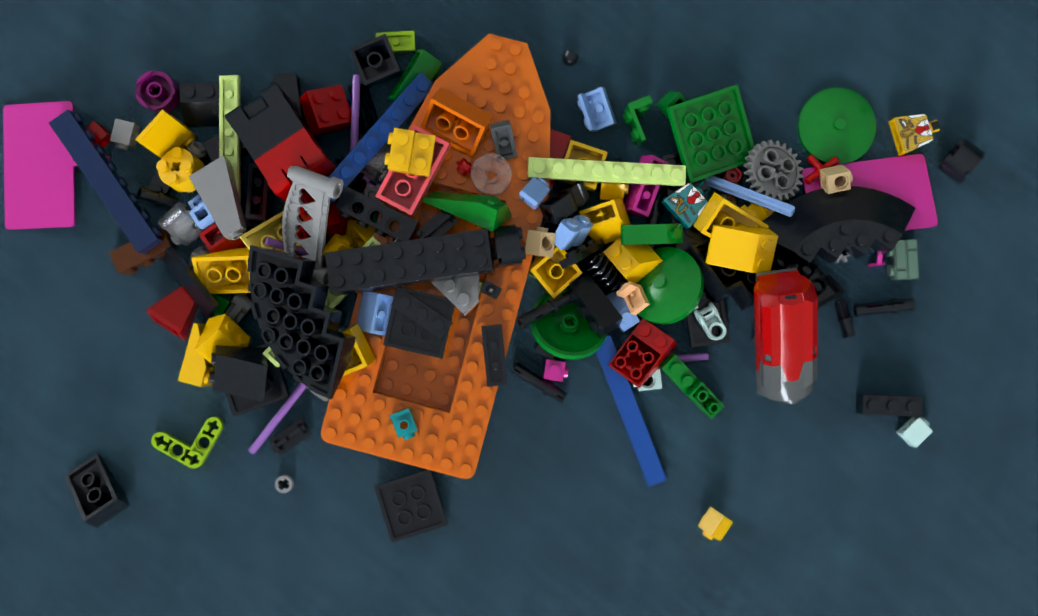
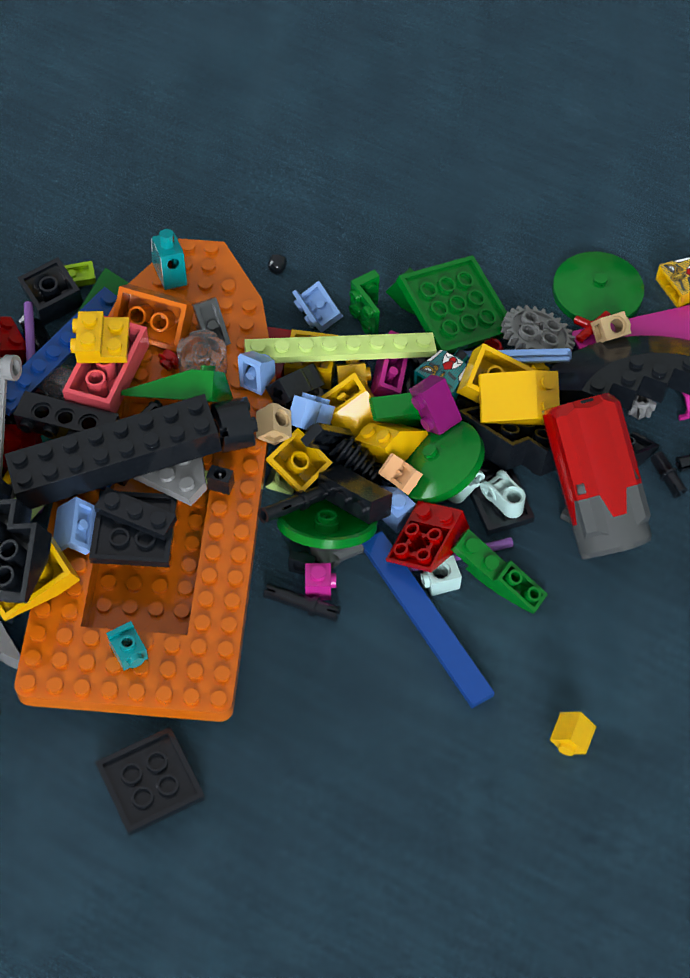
camera: 15 degrees left, 30 degrees down
(476, 65) = (164, 249): none -> teal torso
(494, 355) = (236, 551): black plate -> none
(672, 244) = (435, 404): none -> magenta brick

